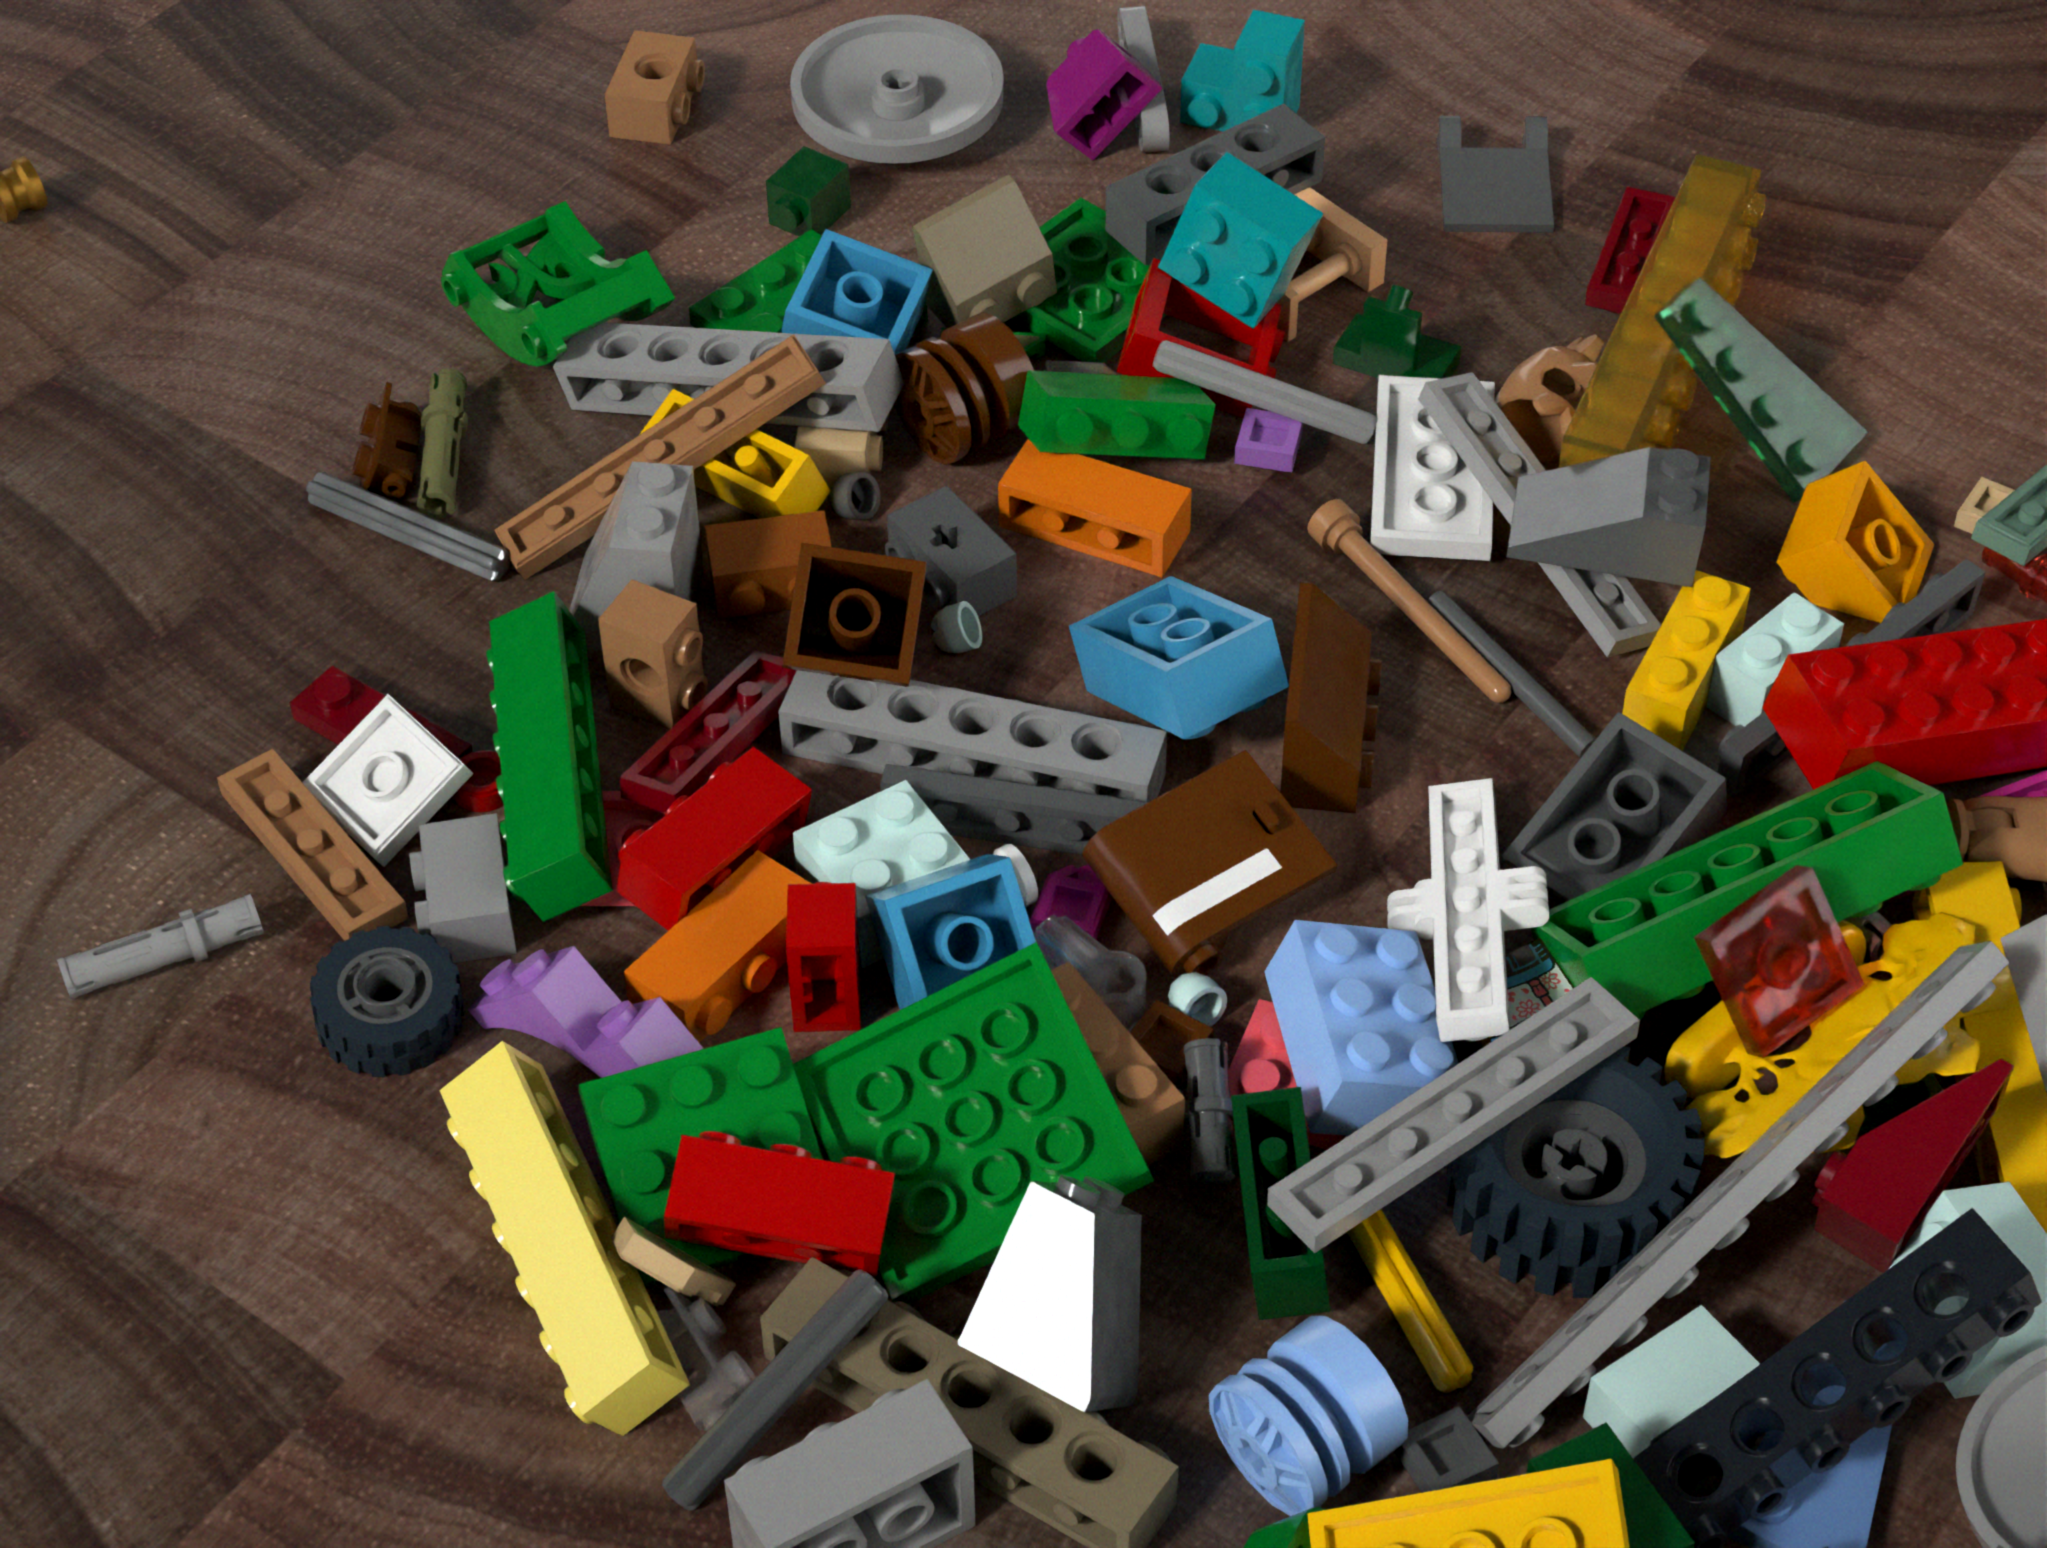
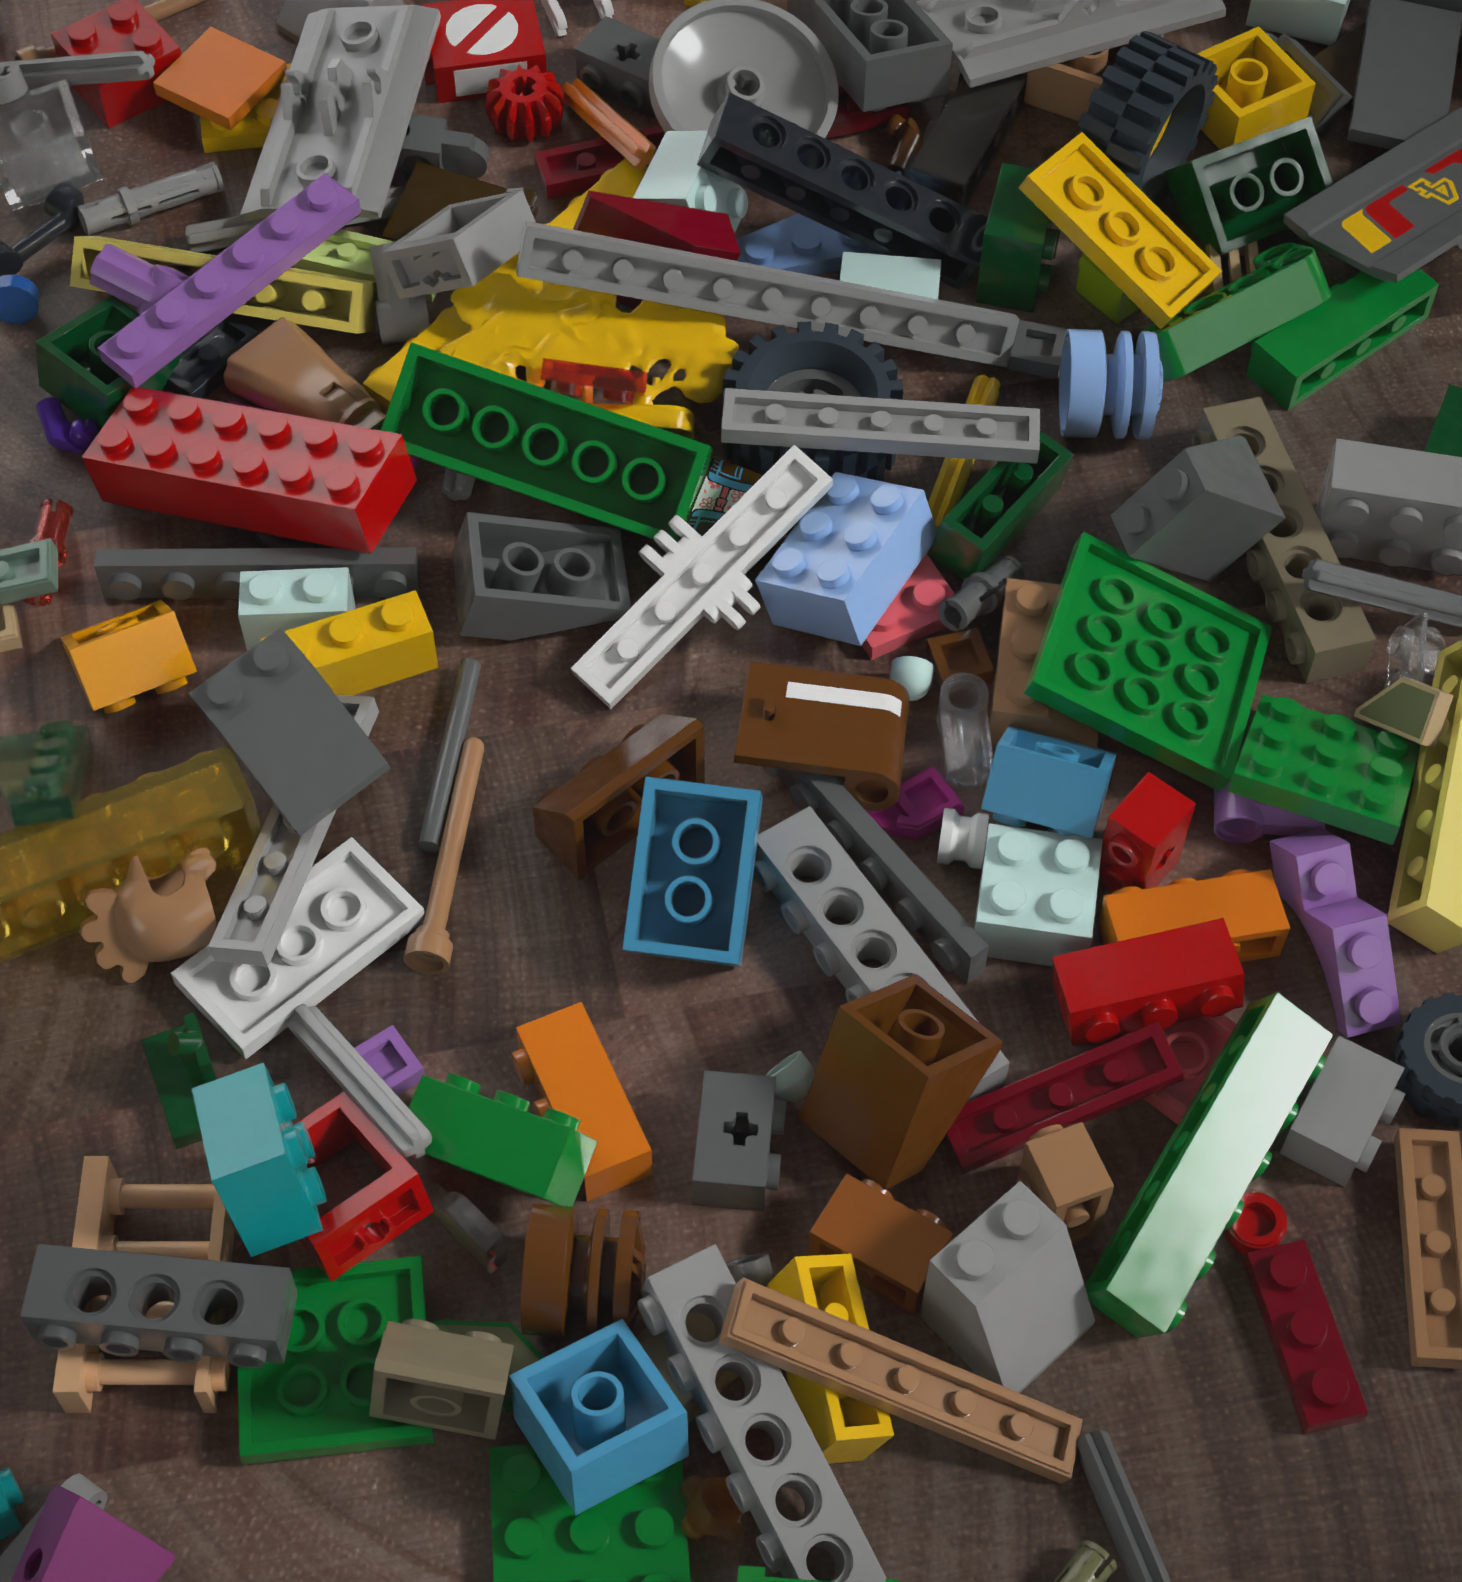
camera: 140 degrees left, 10 degrees up
(386, 780) = (1342, 1256): white tile -> none
(778, 1202) = (1320, 678): red brick -> none

